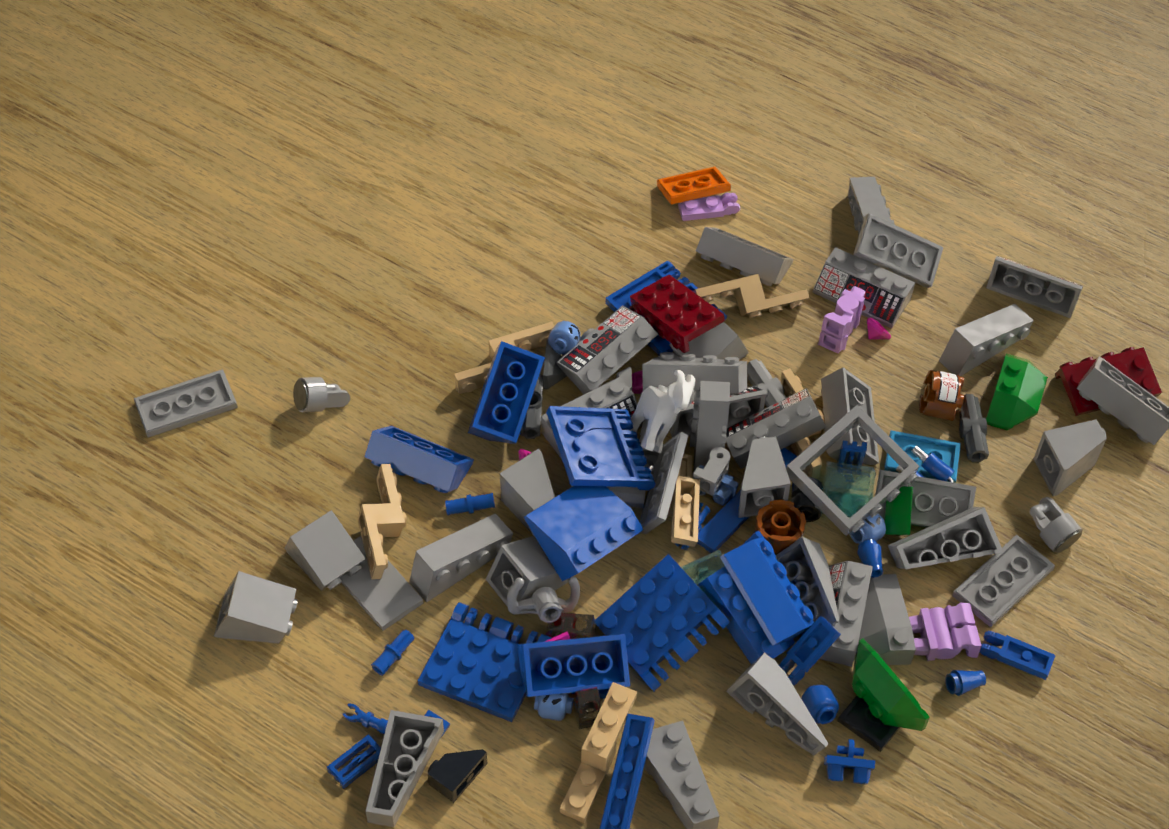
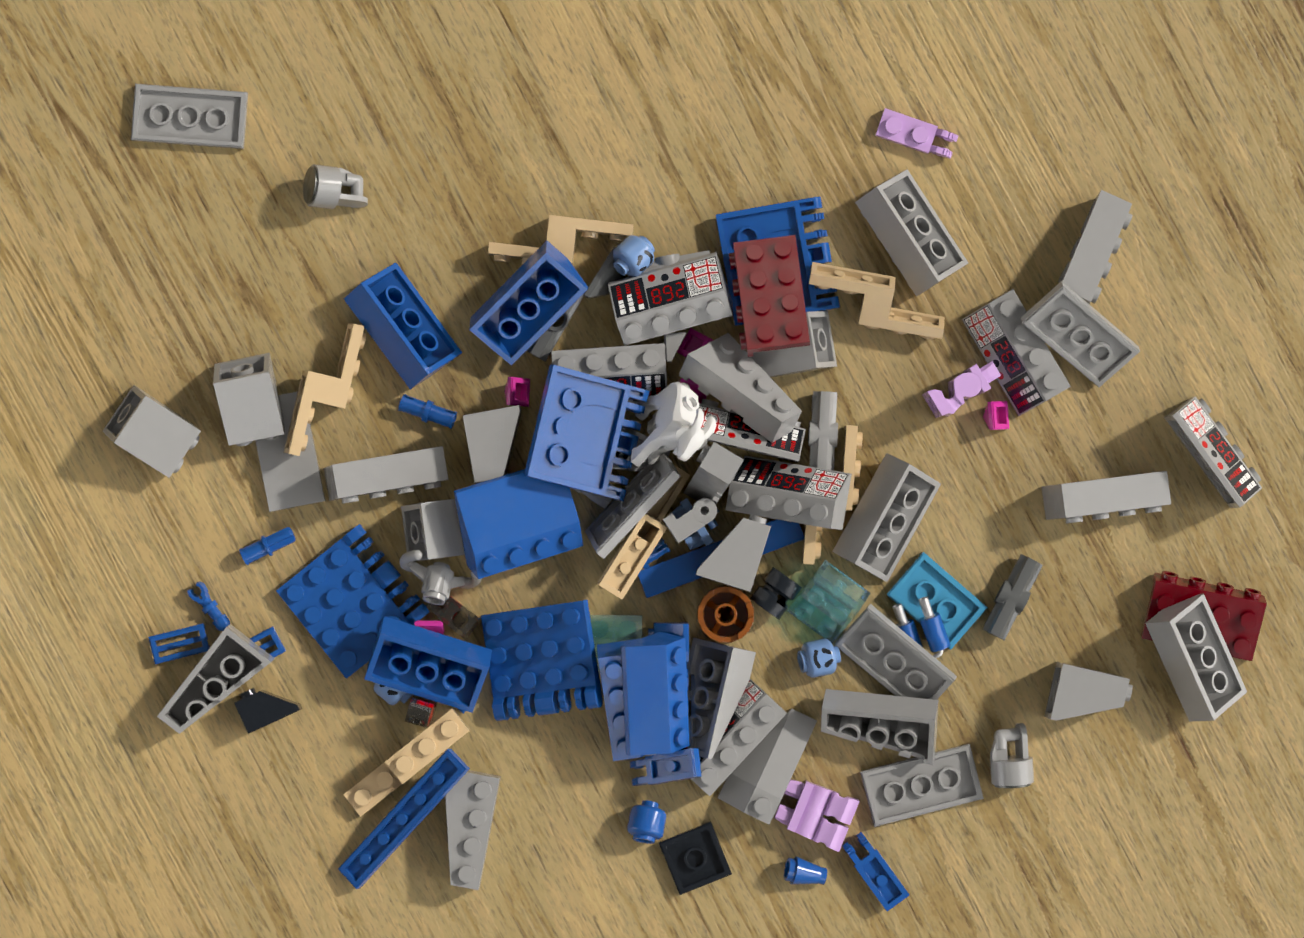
camera: 30 degrees right, 35 degrees up
(693, 185) = (914, 96): orange tile -> none
(771, 694) = (600, 785): light grey wedge -> none
(821, 500) = (820, 560): light grey window -> none
(852, 449) = (851, 573): blue tile -> none
(861, 767) = (637, 892): blue hips -> none
(871, 555) = (800, 693): blue cone -> none
(885, 691) = (711, 845): green wedge -> none
(899, 513) = (860, 658): green slope -> none
(941, 395) = (1001, 545): dark orange brick -> none
(1016, 393) = (1094, 574): green wedge -> none

